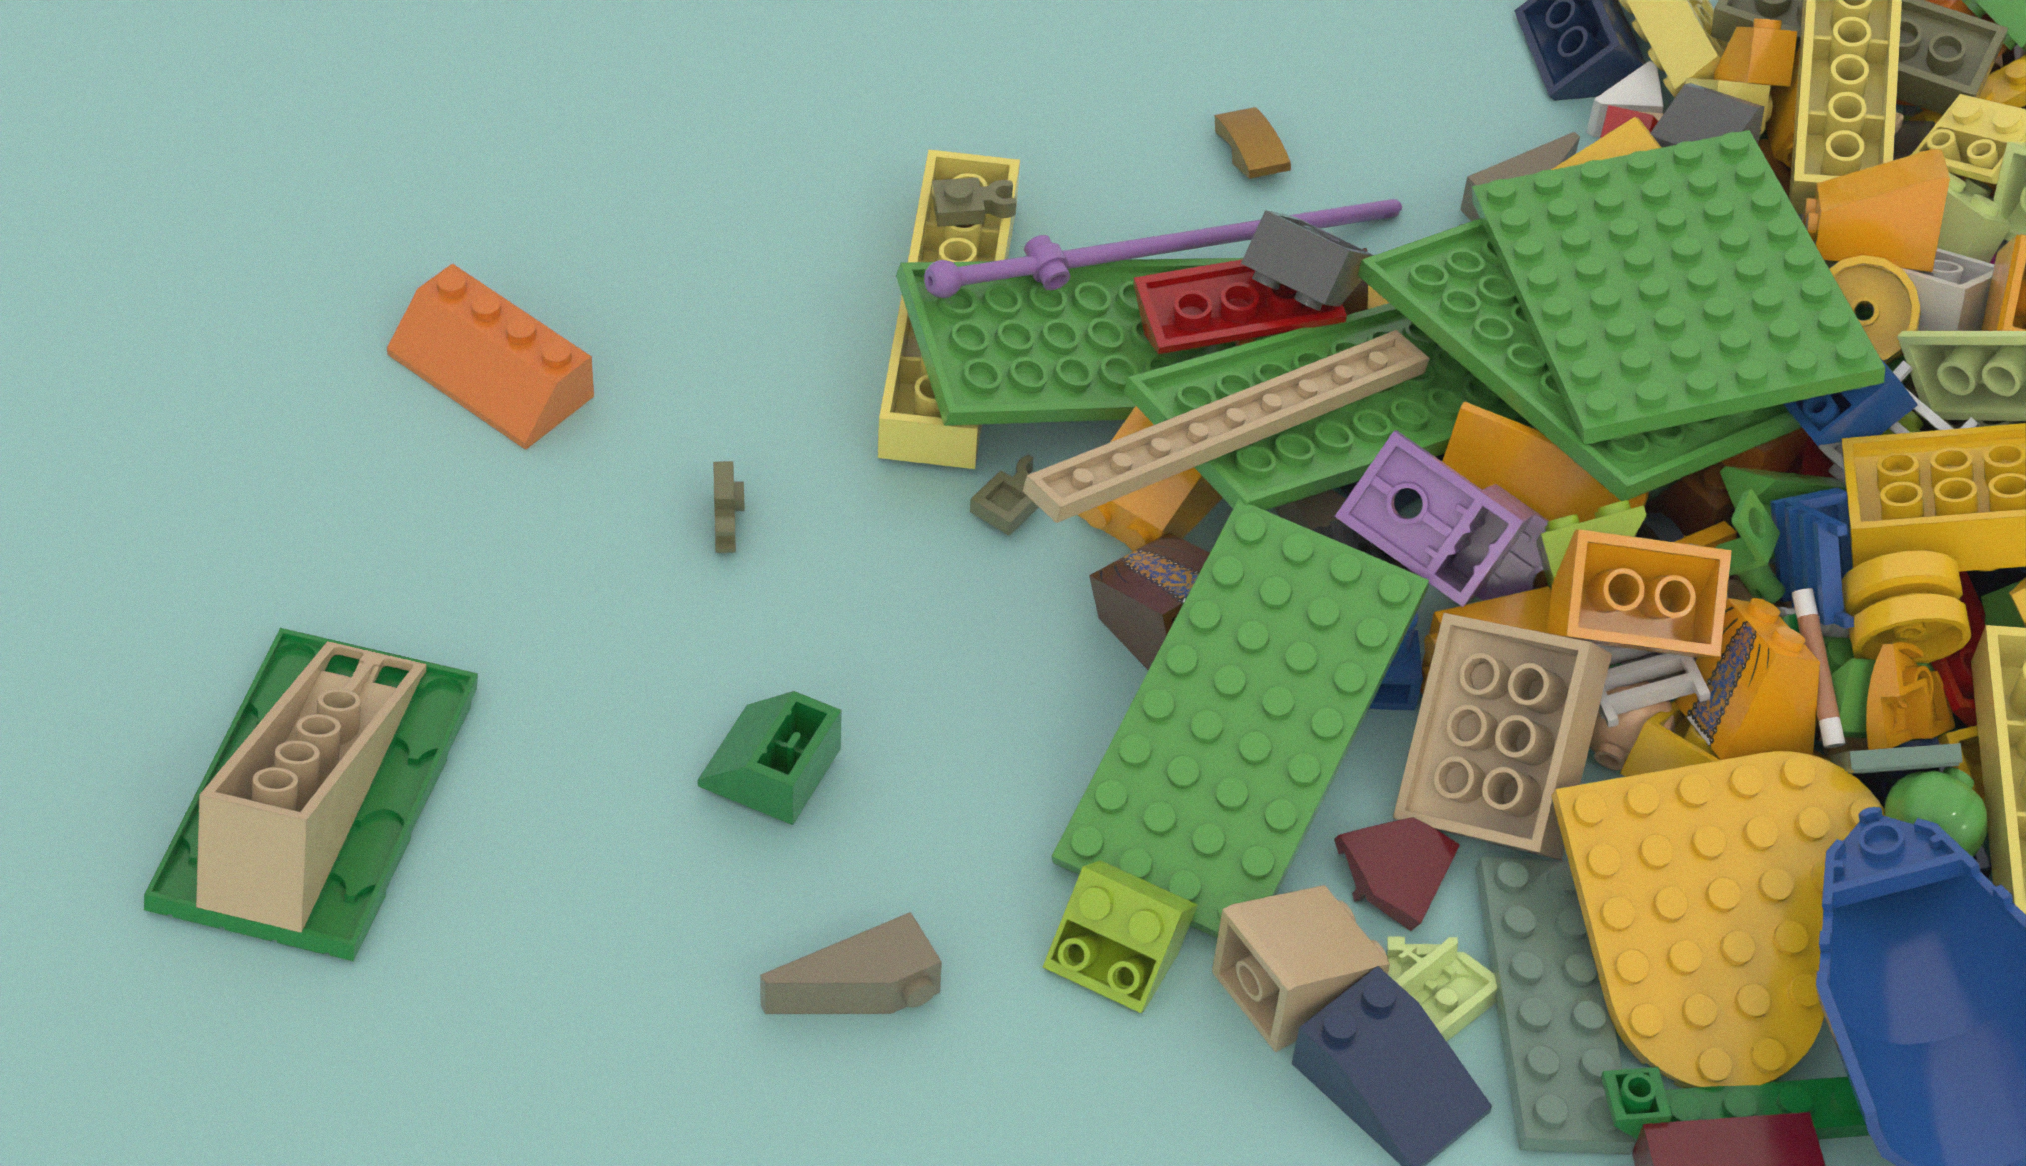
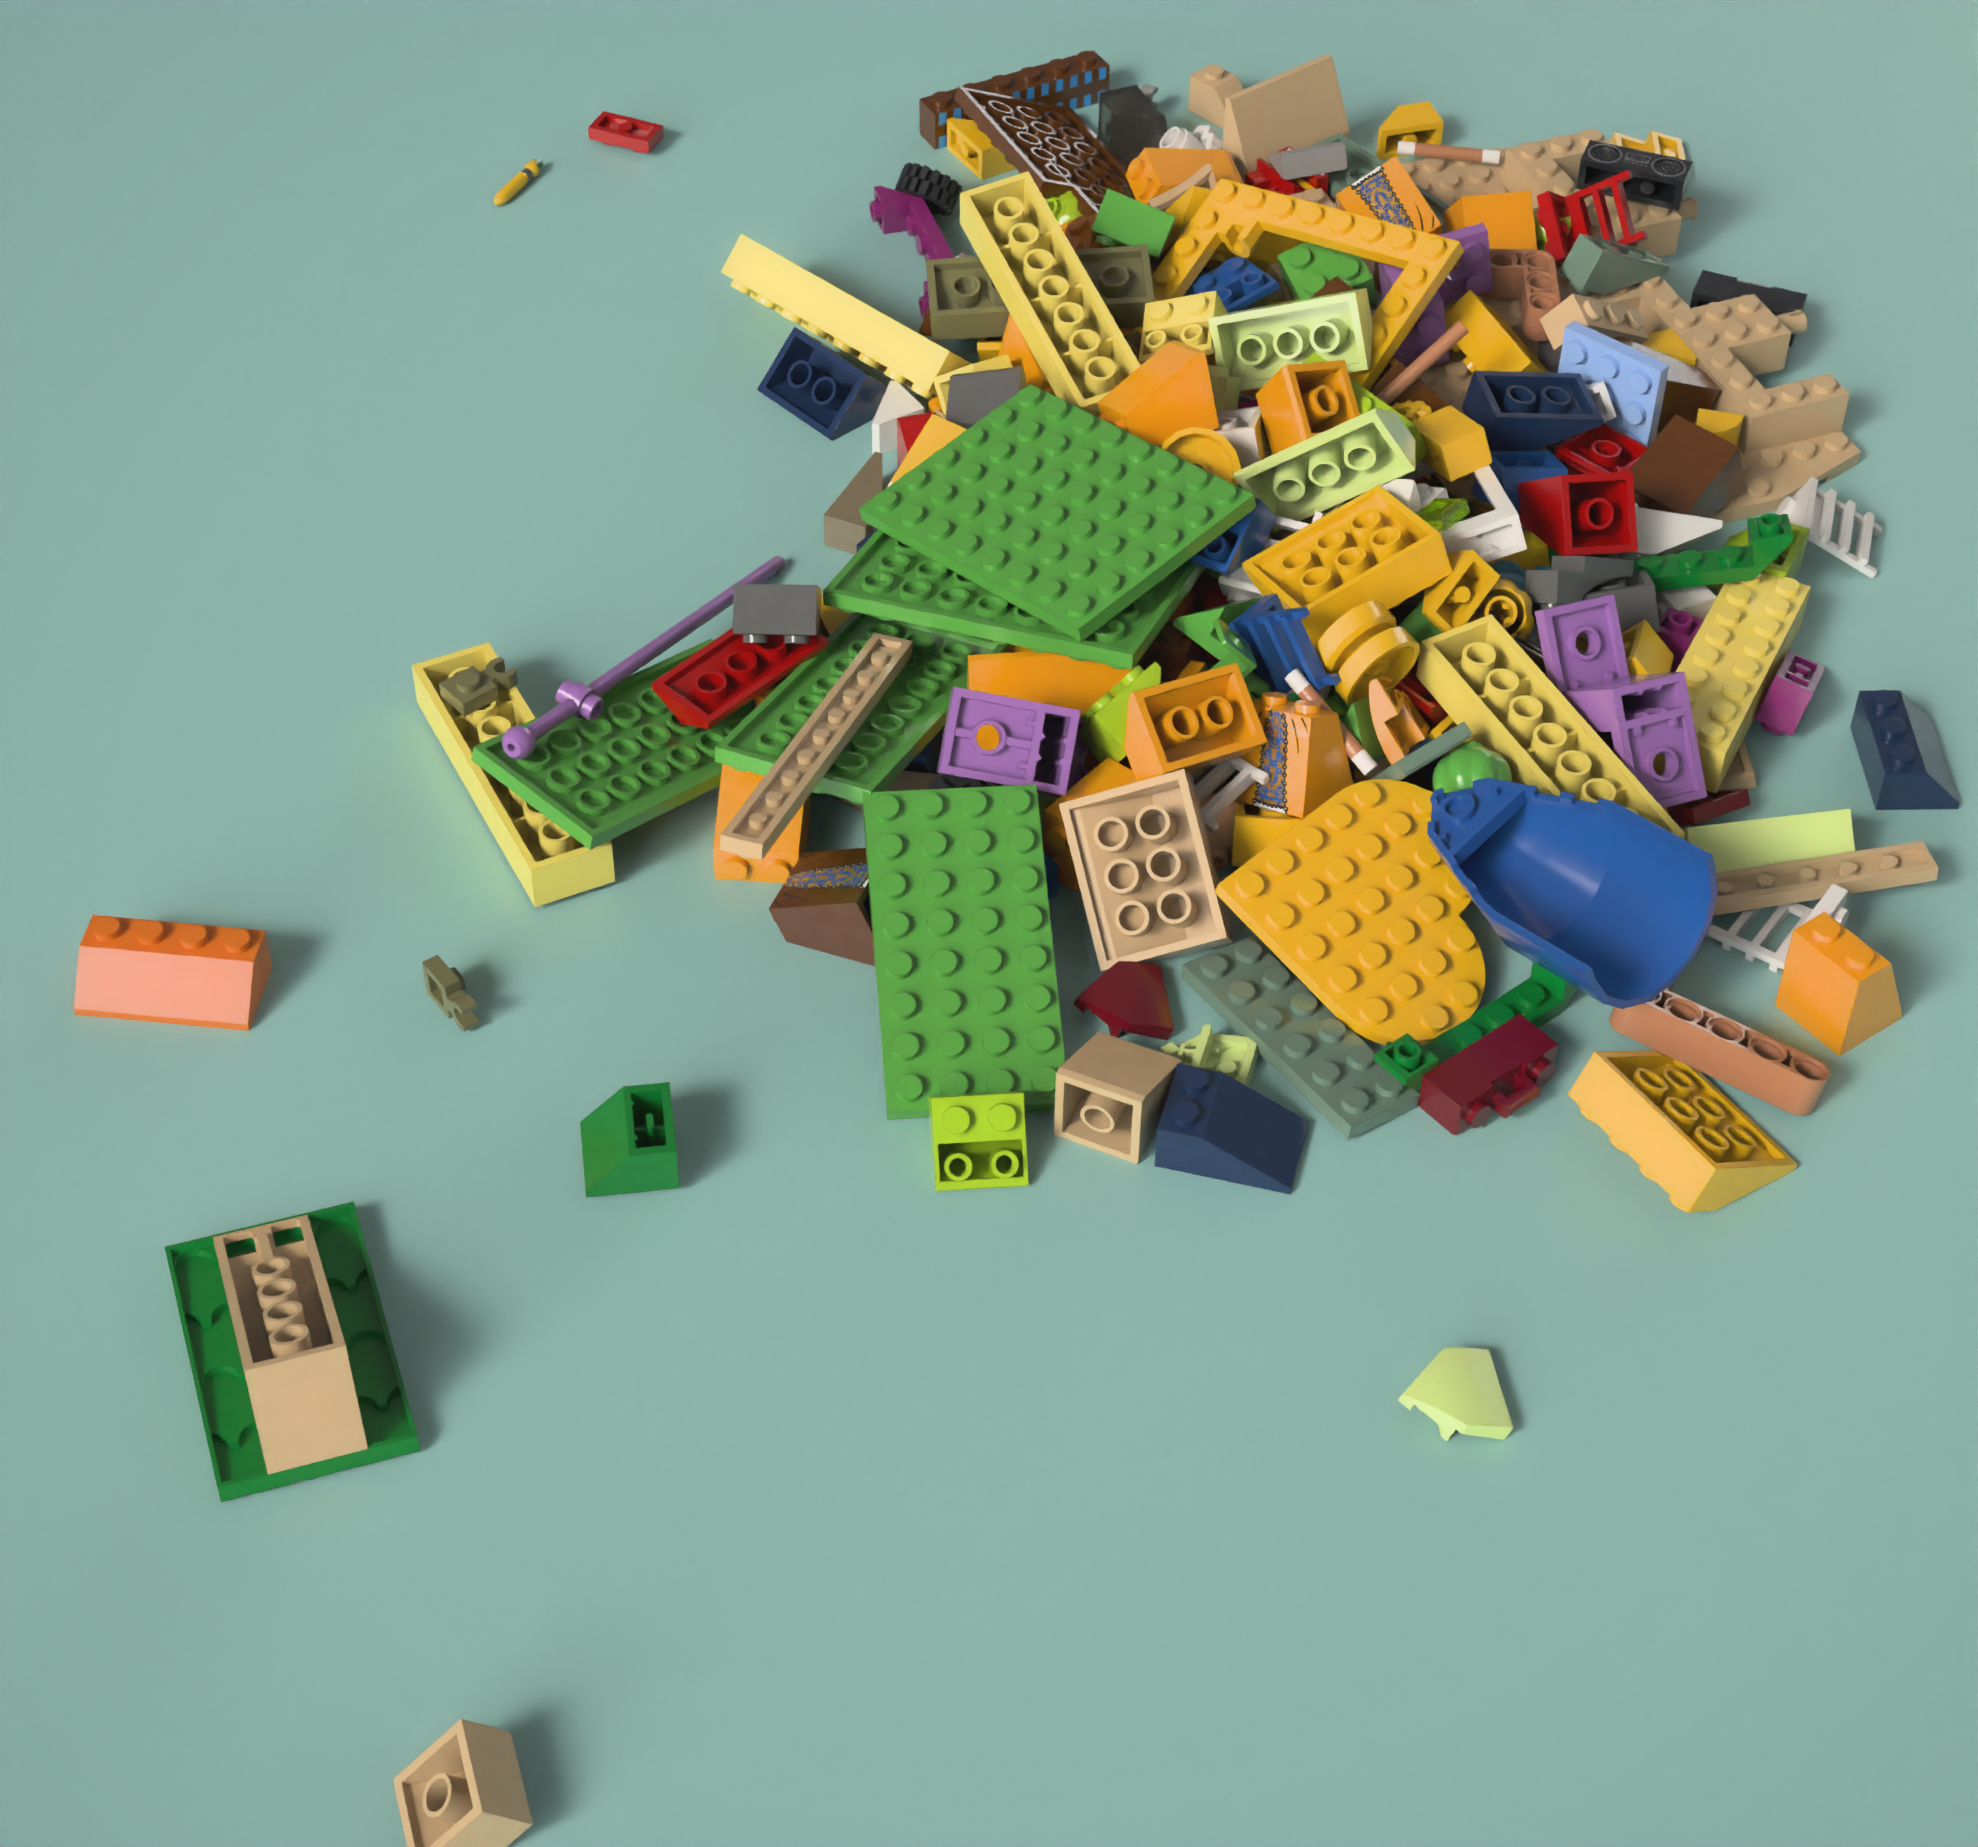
camera: 30 degrees left, 5 degrees down
(860, 975) = (817, 1259): dark tan slope -> none
(1003, 499) = (661, 887): olive plate -> none
(1253, 141) = (643, 560): pearl gold slope -> none
(1759, 55) = (984, 336): light orange slope -> none

